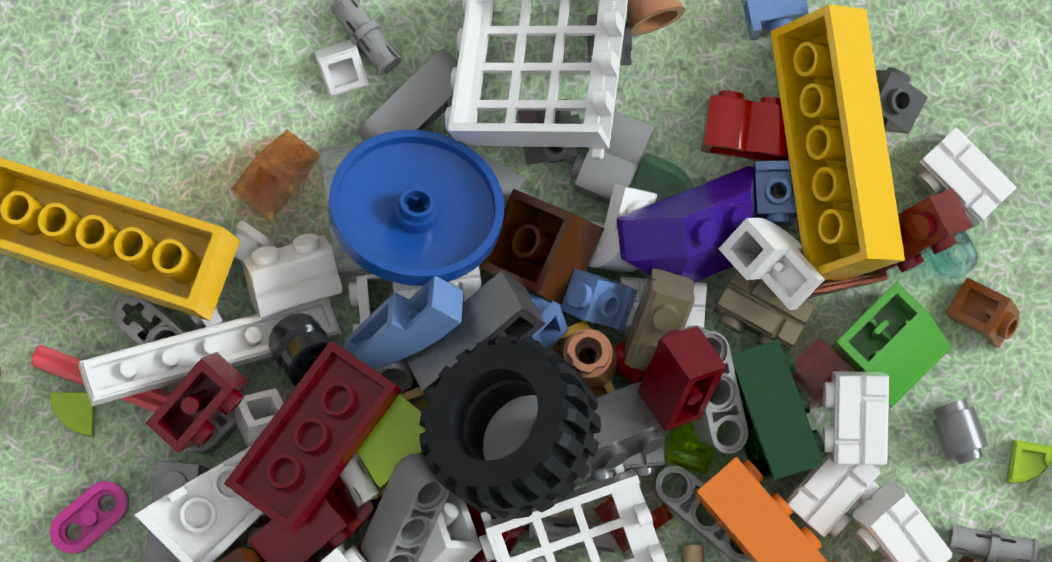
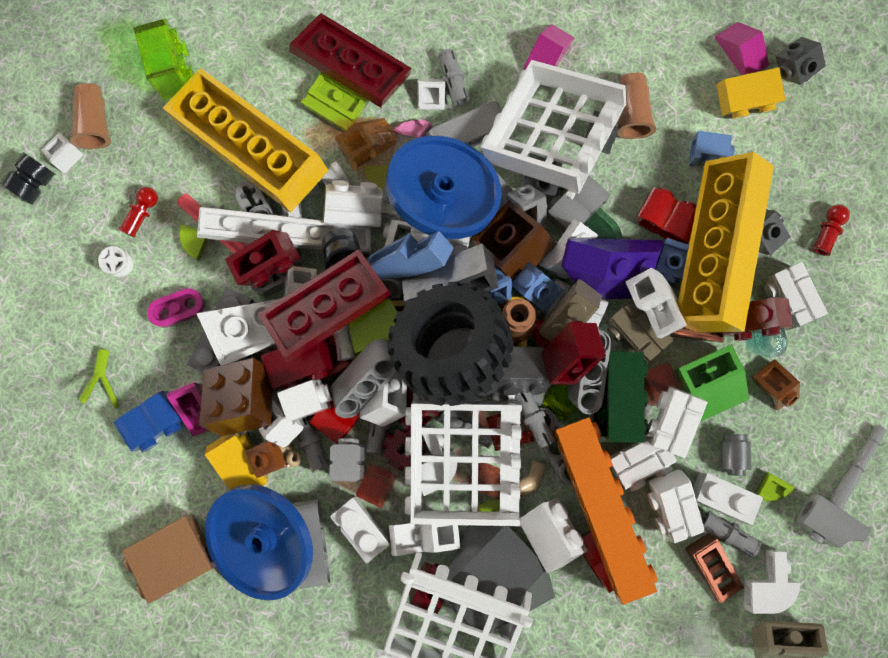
camera: 25 degrees right, 0 degrees up
(206, 62) = (350, 59): none -> dark red plate
(206, 131) = (334, 102): none -> lime plate
(311, 217) = (377, 175): none -> lime tile
(335, 130) = (413, 128): none -> bright pink tile
(545, 181) = (531, 202): none -> light grey bracket
(663, 487) = (535, 419): none -> light grey pin
(967, 498) = (726, 498): none -> white brick
(984, 41) = (836, 217): none -> red pin

